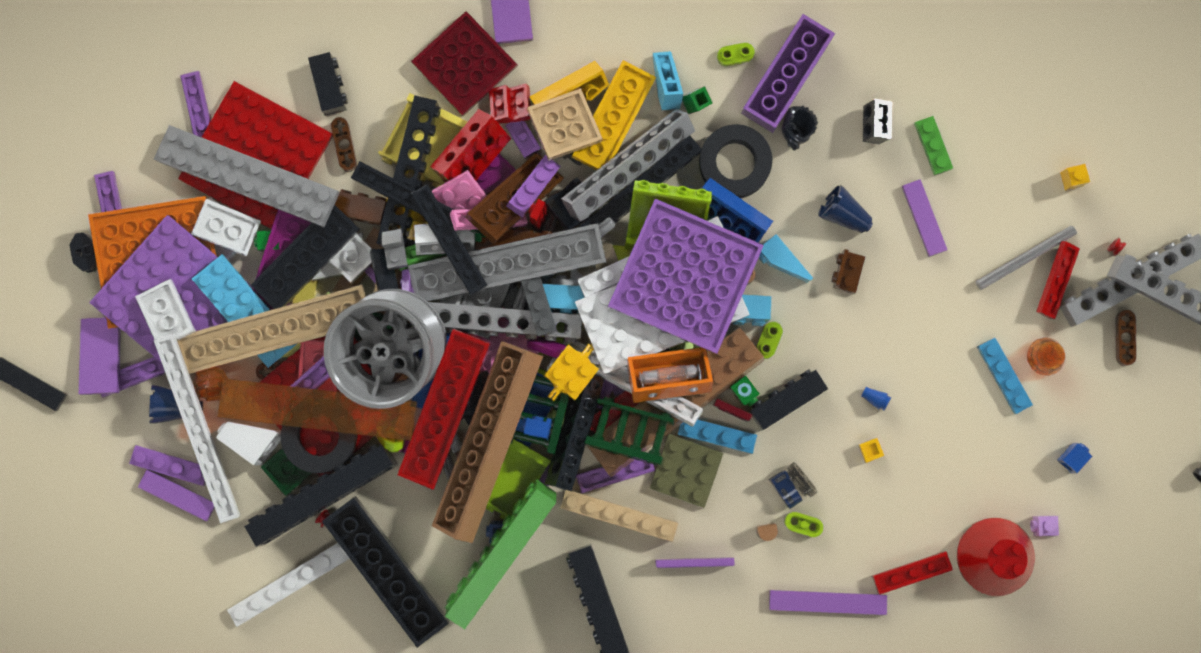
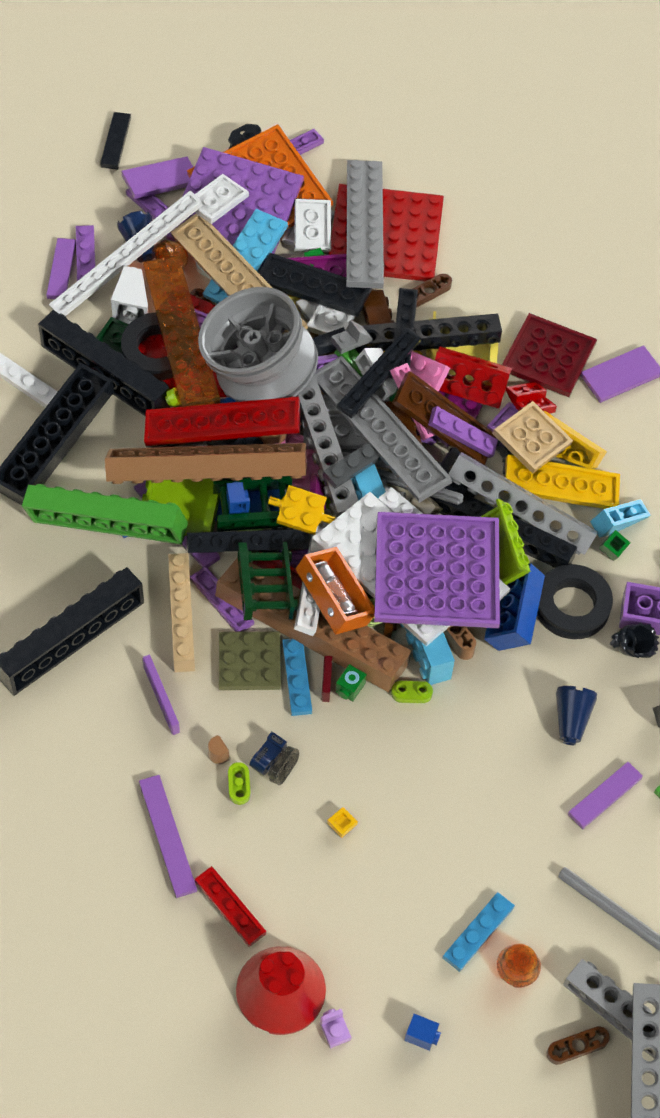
camera: 65 degrees right, 25 degrees down
(196, 102) = (412, 177): medium lavender tile -> none
(328, 83) = (476, 260): black brick -> none
(538, 215) = (437, 437): red plate -> none
(778, 256) = (499, 669): medium azure slope -> none
(788, 400) = (359, 725): black brick -> none
(848, 271) = (515, 739): reddish brown bracket -> none
(876, 398) = (397, 812): blue cone -> none
(1058, 280) = (606, 948): red plate -> none

